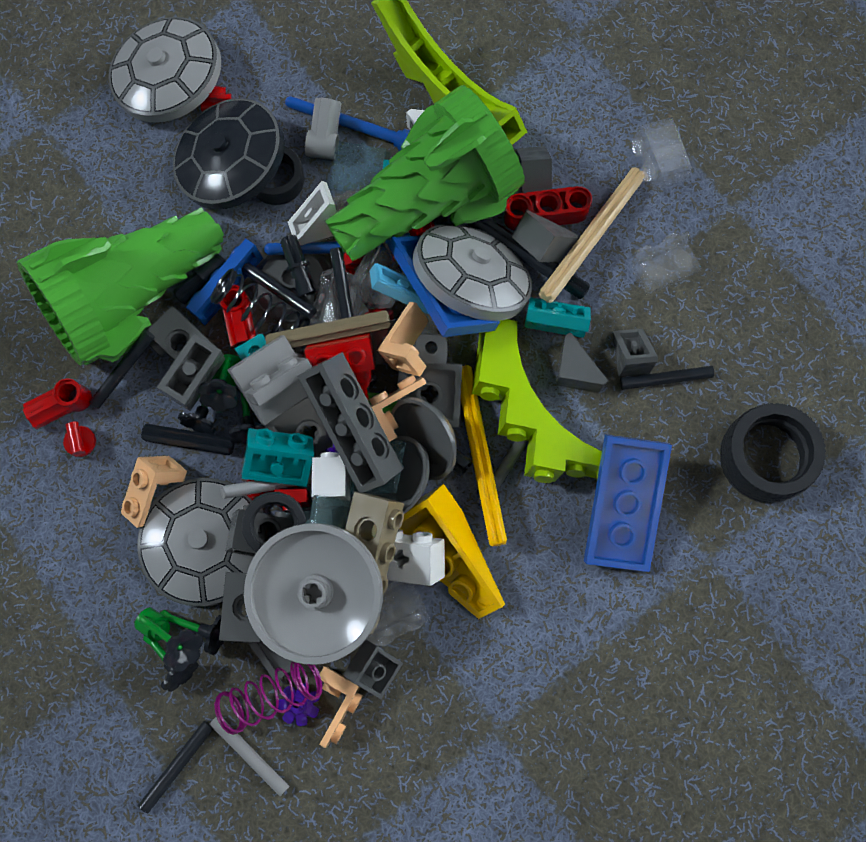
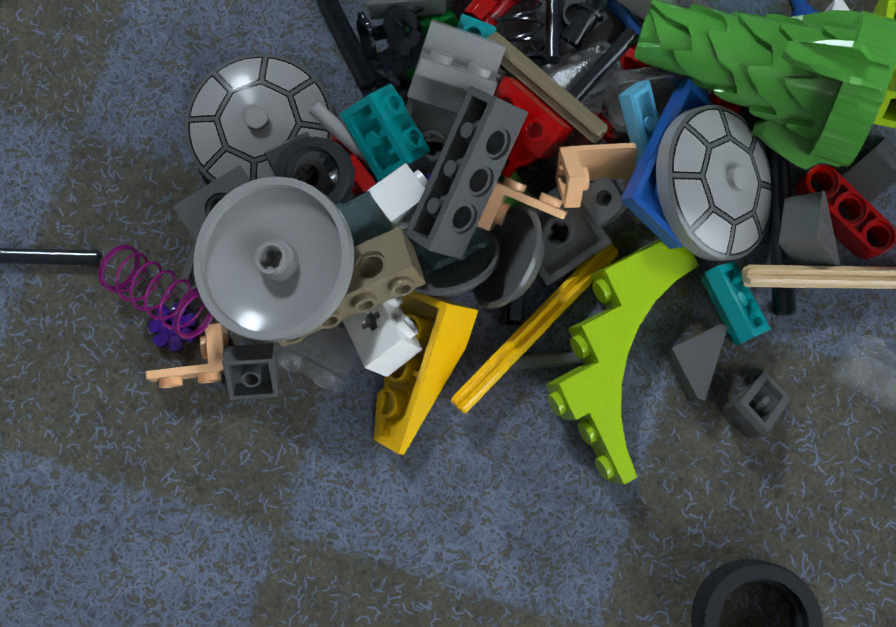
camera: 50 degrees right, 5 degrees up
(143, 483) = (277, 26): light nougat bracket -> none
(182, 649) = (139, 179): black plant -> none
(252, 758) = (95, 320): light grey bar -> none
(627, 503) = (592, 506): blue plate -> none
(667, 377) = (757, 460): black bar -> none

